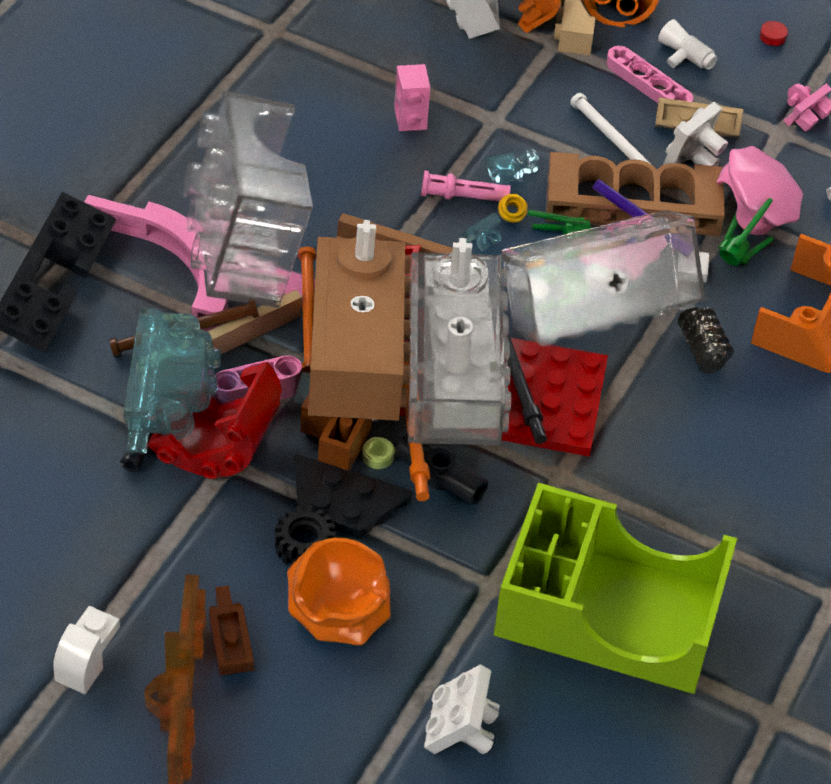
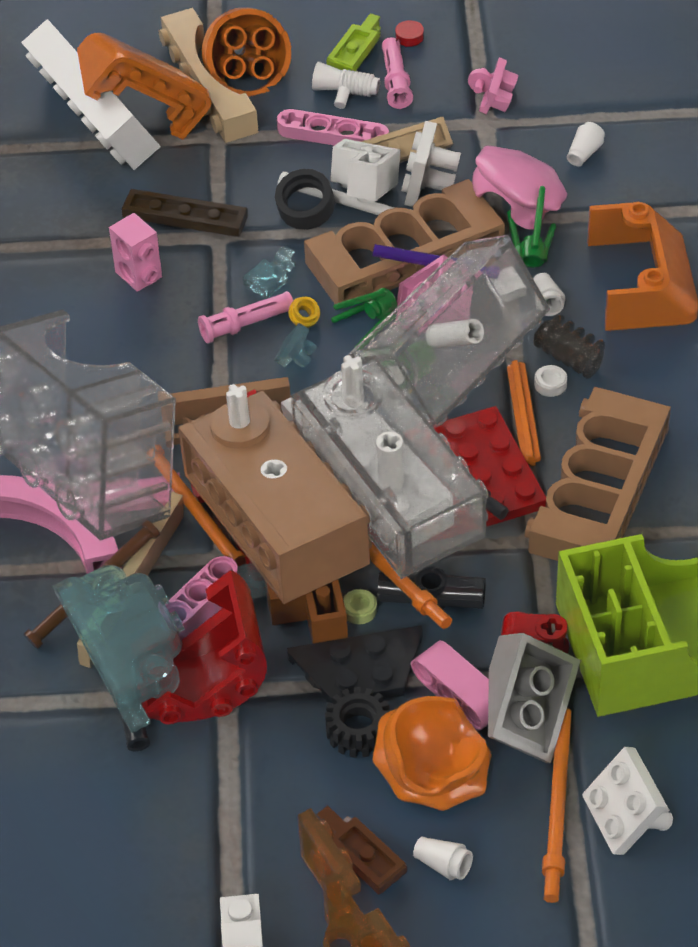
camera: 25 degrees left, 0 degrees up
(289, 675) = (445, 857): none -> white cone
(371, 726) = (553, 862): none -> orange bar
(405, 552) = (452, 676): none -> bright pink beam
(445, 588) = (529, 694): none -> light grey slope
(480, 88) = (186, 212): none -> dark brown plate
(489, 545) = (539, 627): none -> red piece
(577, 104) = (301, 179): none -> black tyre
(627, 372) = (523, 412): none -> orange axle
(645, 120) = (365, 169): none -> white brick
(671, 359) = (550, 380): none -> white tile
(689, 407) = (610, 417): none -> medium nougat fence
(720, 22) = (355, 44): none -> lime hinge
(720, 290) = (551, 292): none -> white cone
(732, 64) = (396, 80): none -> bright pink pin

